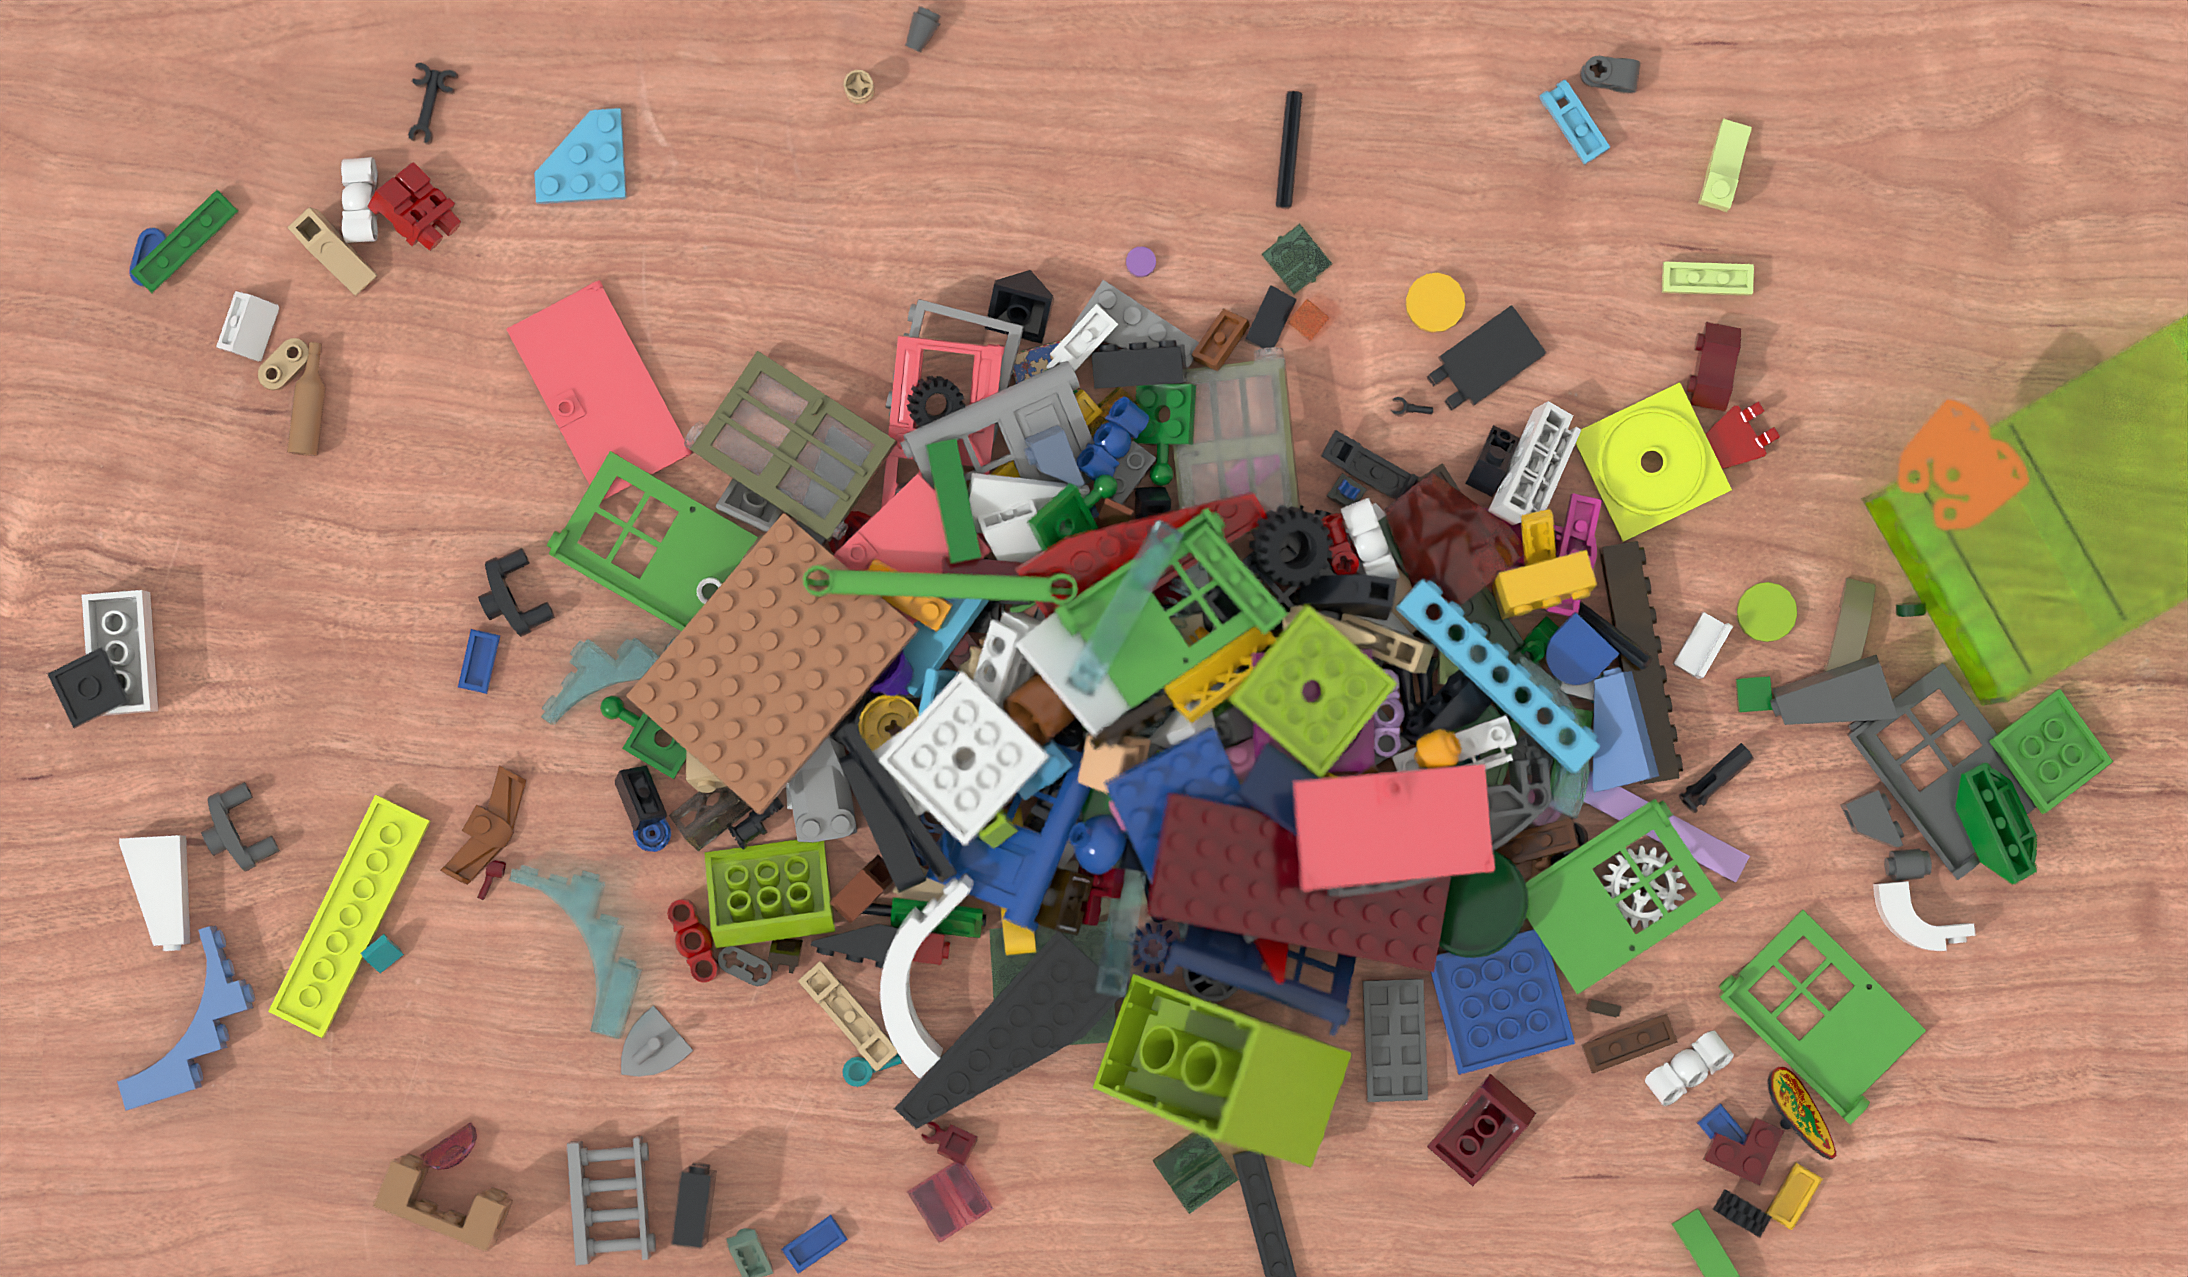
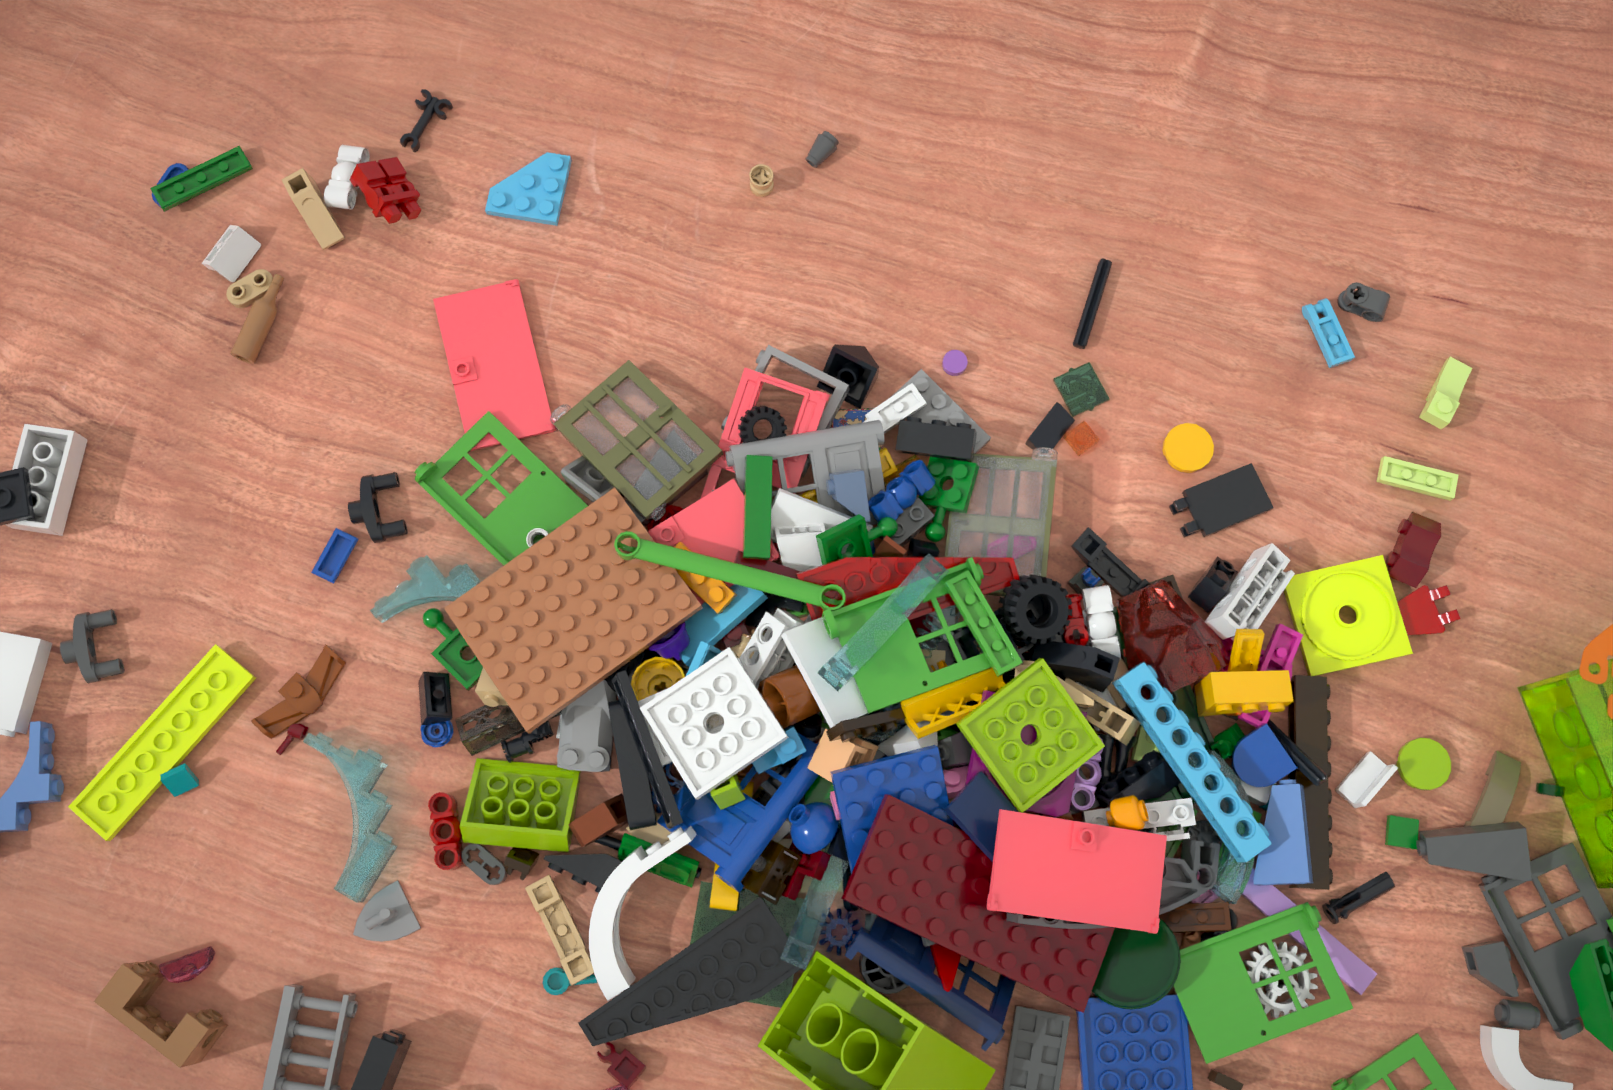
camera: 10 degrees right, 10 degrees down
(932, 949) = (647, 887): red brick -> none
(1220, 340) = (1006, 436): dark orange plate -> none
(1411, 408) = (1152, 527): black hand -> none

